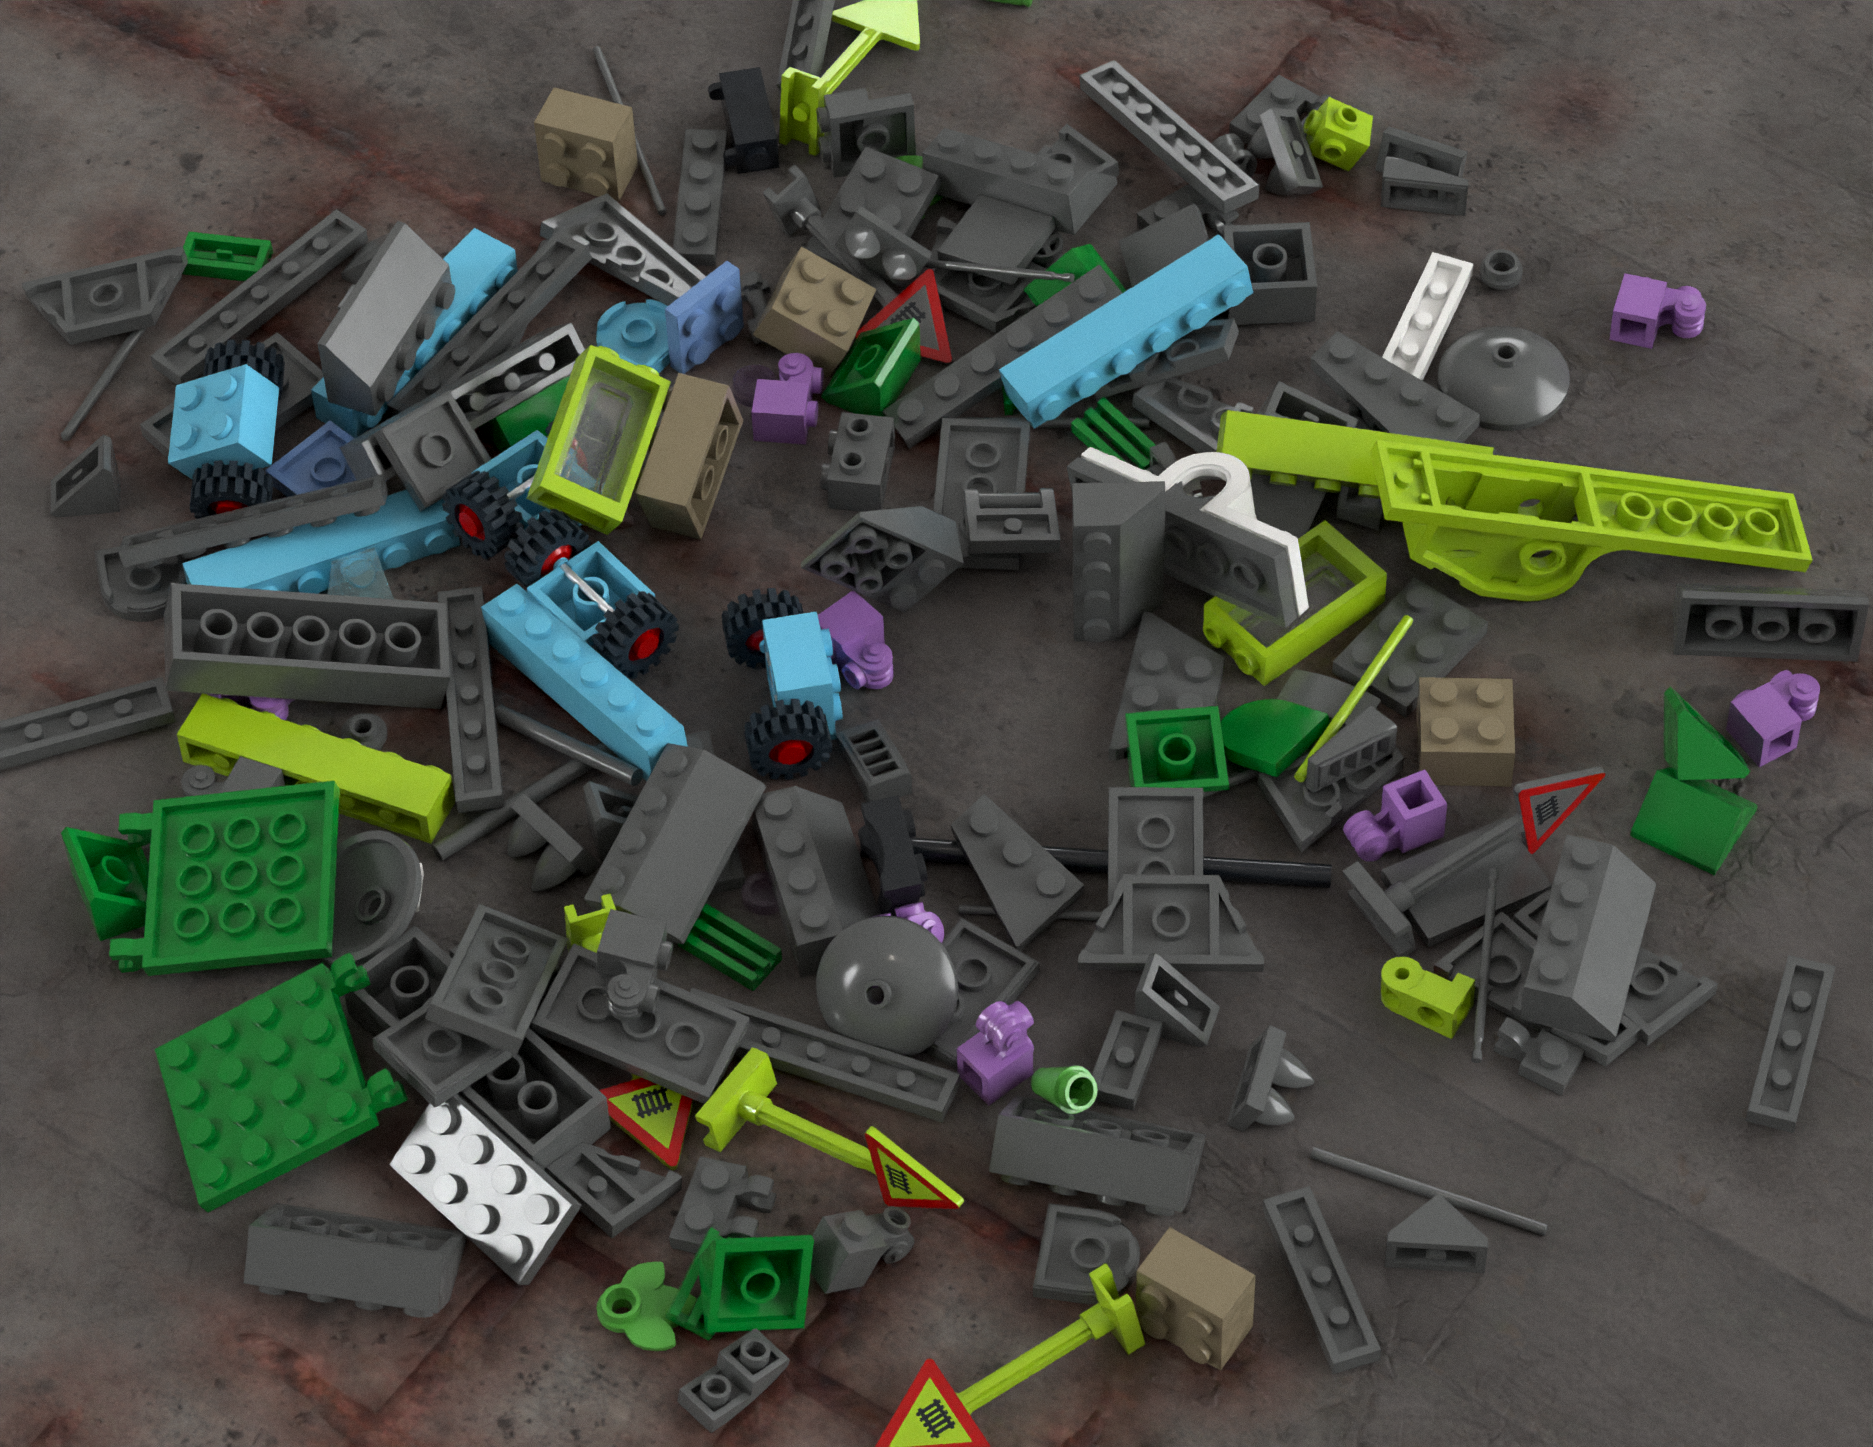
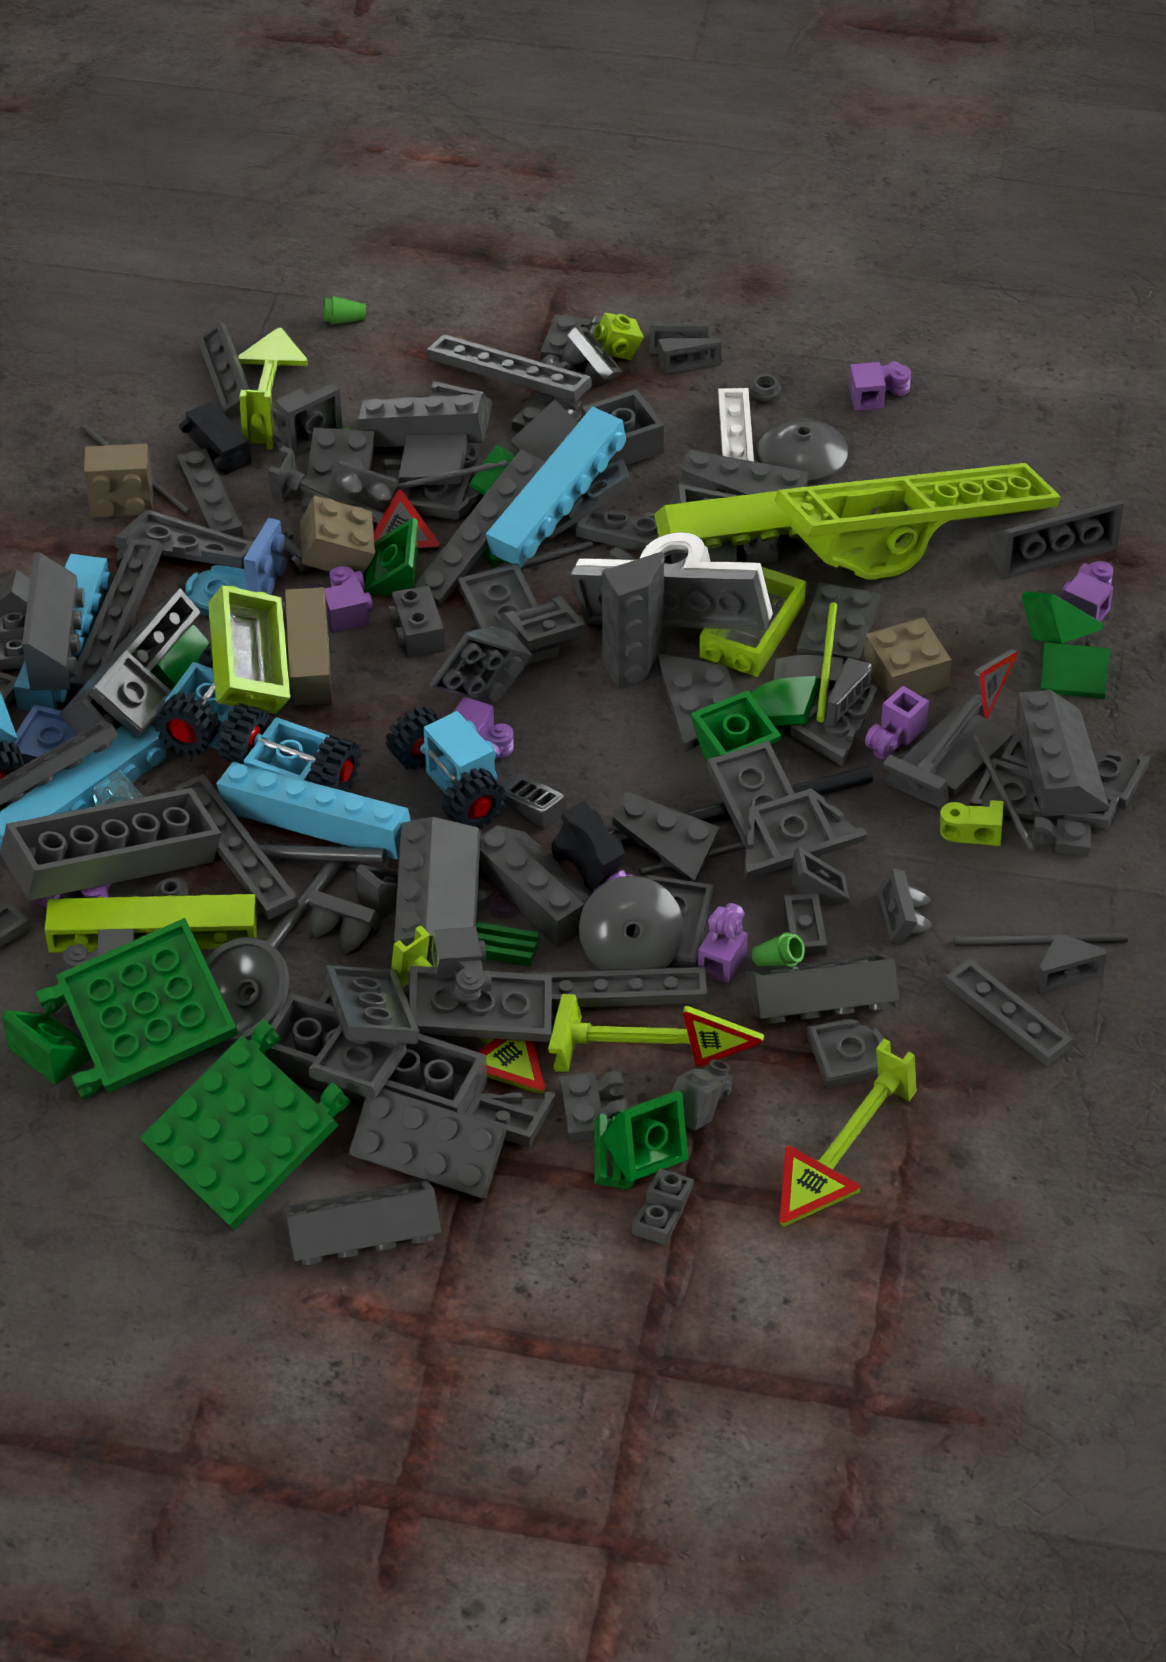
camera: 25 degrees left, 5 degrees down
(648, 1303) = (577, 1181): bright green plate -> none
(1105, 409) = (572, 550): green tile -> none
(1194, 1299) = (944, 1045): dark tan brick -> none

